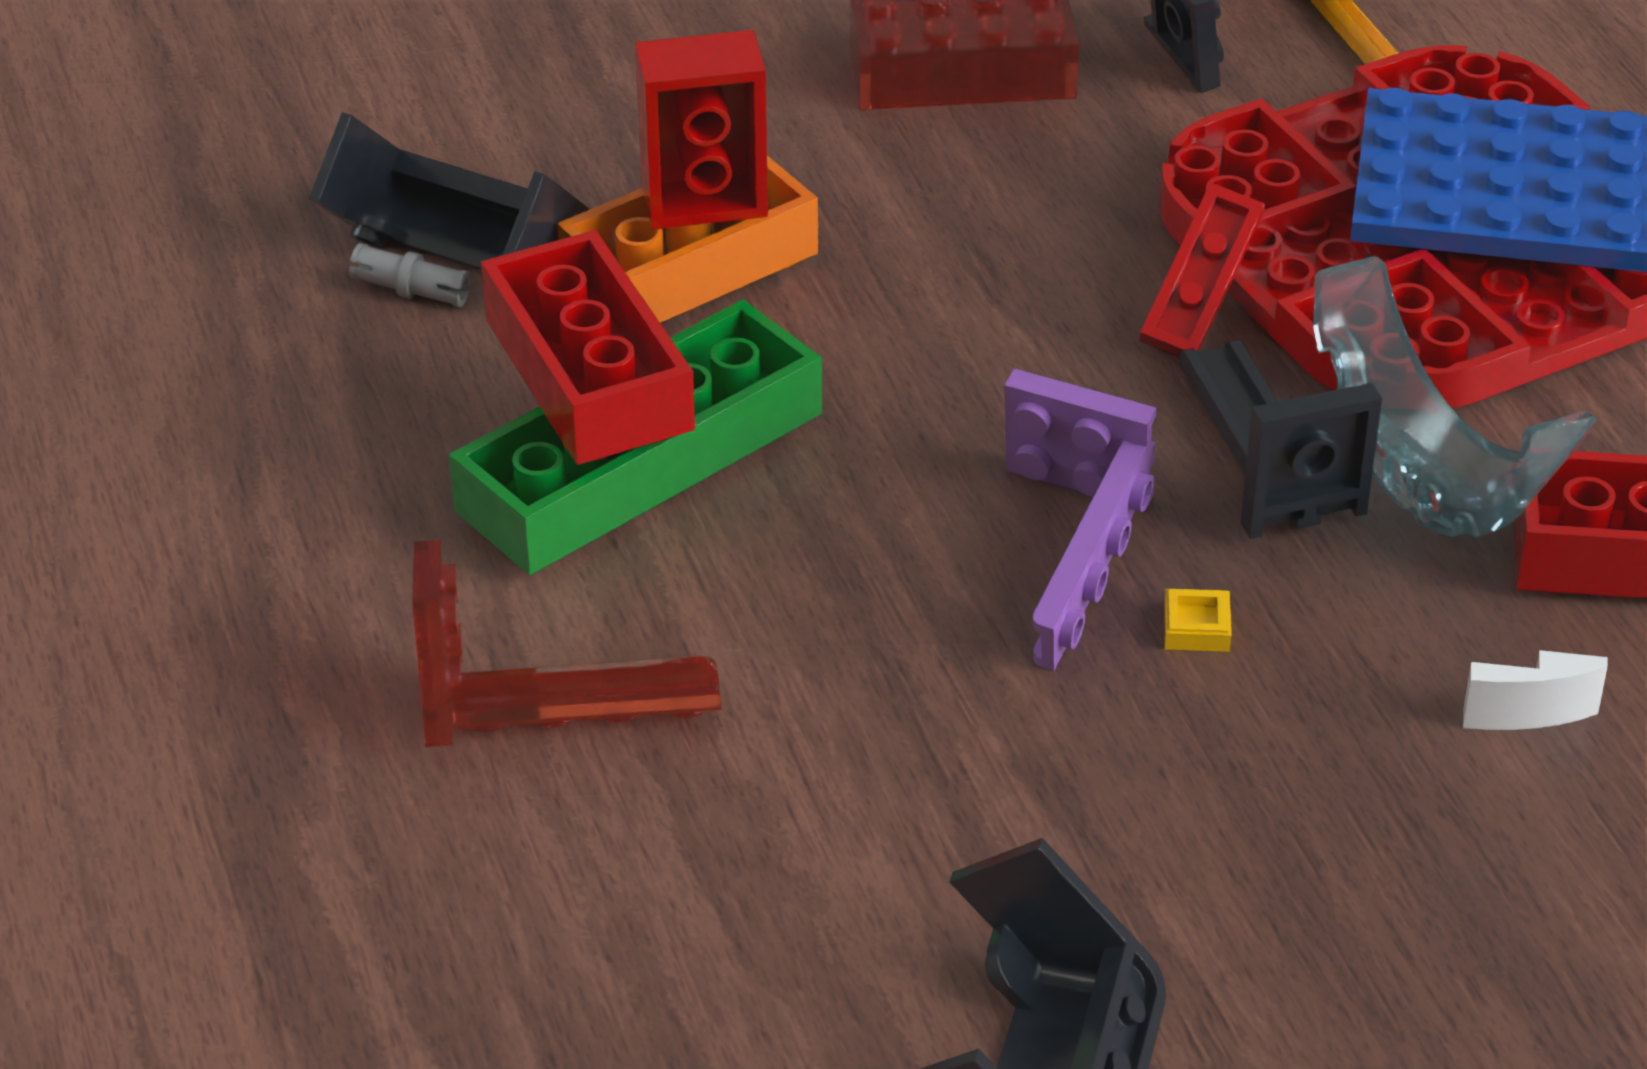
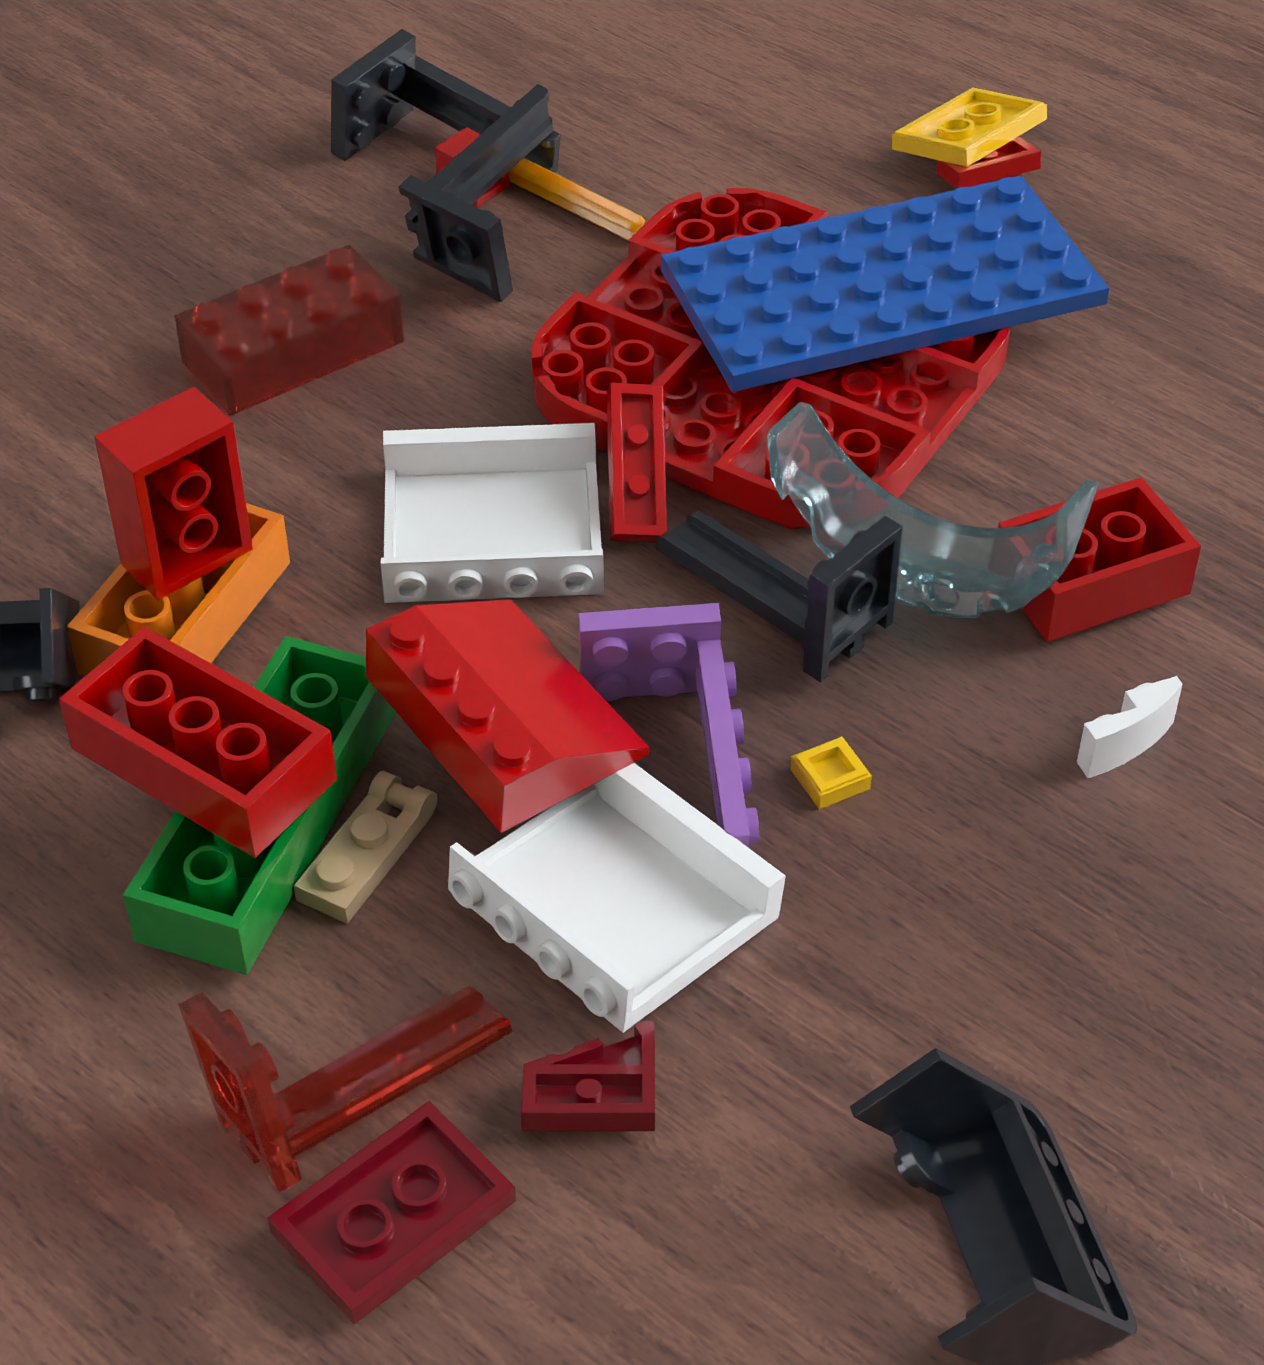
camera: 30 degrees left, 5 degrees up
(513, 803) = (391, 1211): none -> dark red plate
(710, 513) = (365, 847): none -> tan plate
(761, 782) = (593, 1086): none -> dark red wing
(892, 423) = (497, 706): none -> red slope
(905, 636) = (620, 893): none -> white panel
(1038, 275) = (491, 513): none -> white panel

